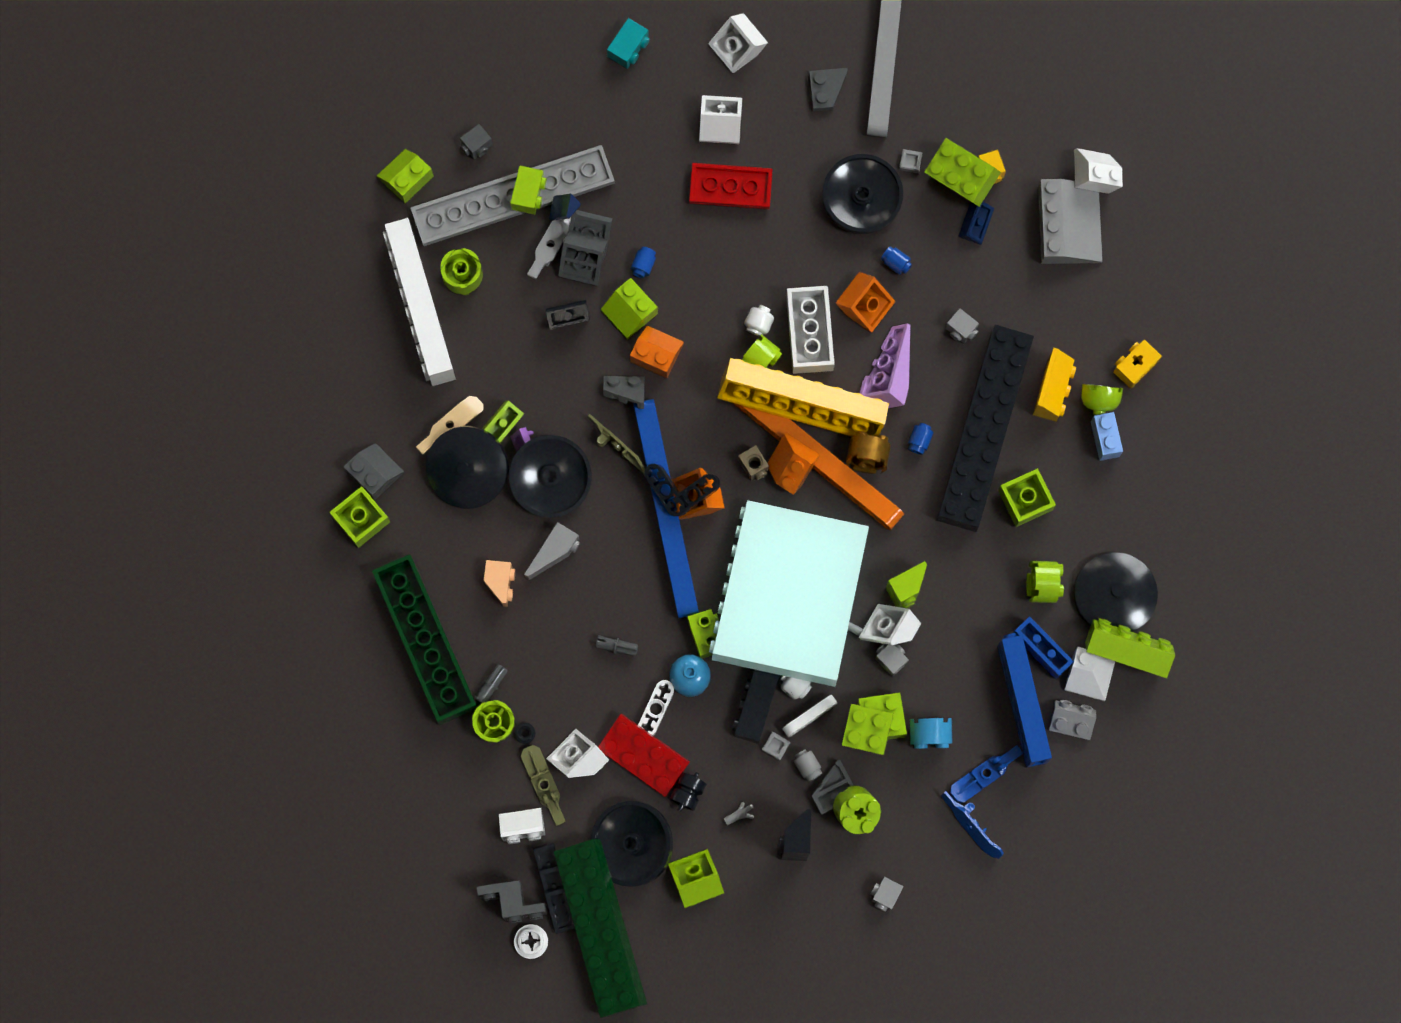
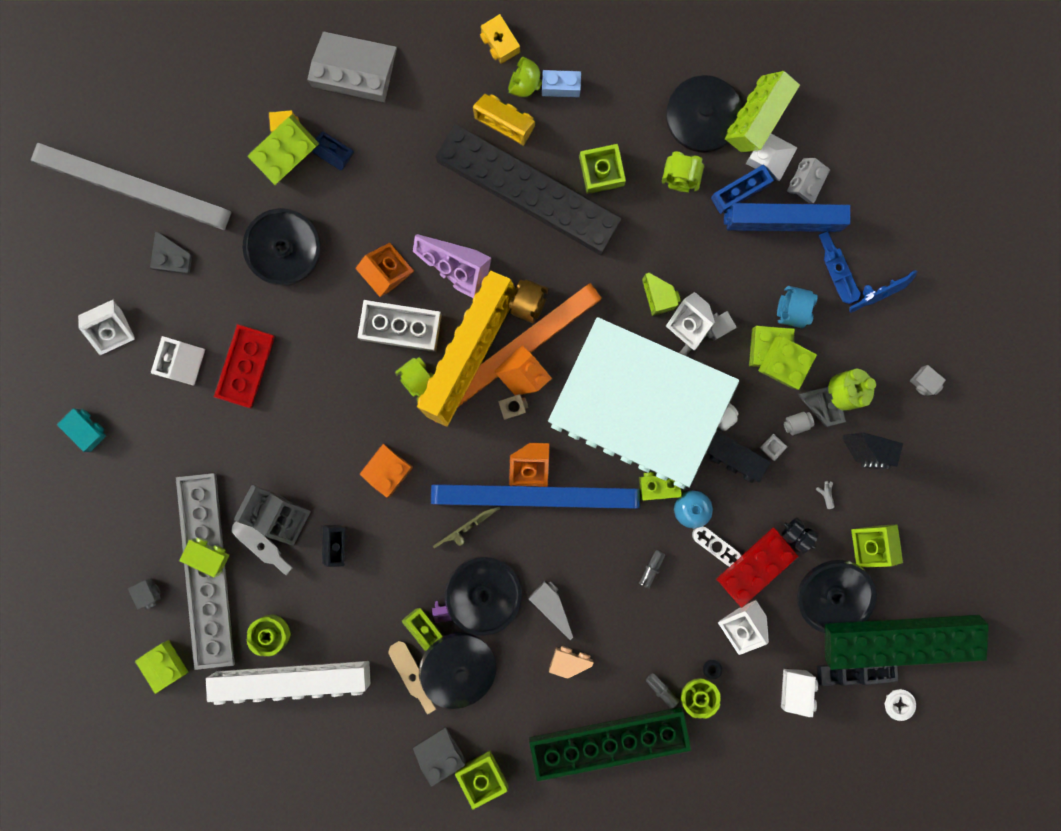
camera: 70 degrees left, 10 degrees up
(512, 901) = (866, 716): dark grey bracket -> none
(538, 773) = (750, 663): olive piece -> none
(563, 207) = (229, 527): slope -> none
(625, 389) = (416, 508): dark grey wing -> none
(629, 308) = (340, 487): lime slope -> none
(643, 262) = (299, 464): blue brick -> none
(681, 497) = (534, 480): black beam -> none
(759, 320) = (379, 370): white head -> none
(809, 716) = (754, 411): white beam -> none
(896, 260) = (352, 231): blue brick -> none
(910, 161) = (259, 195): light grey tile -> none
(920, 438) = (524, 251): blue brick -> none
(962, 326) = (429, 187): light grey brick -> none
(1096, 171) = (311, 27): white slope -> none

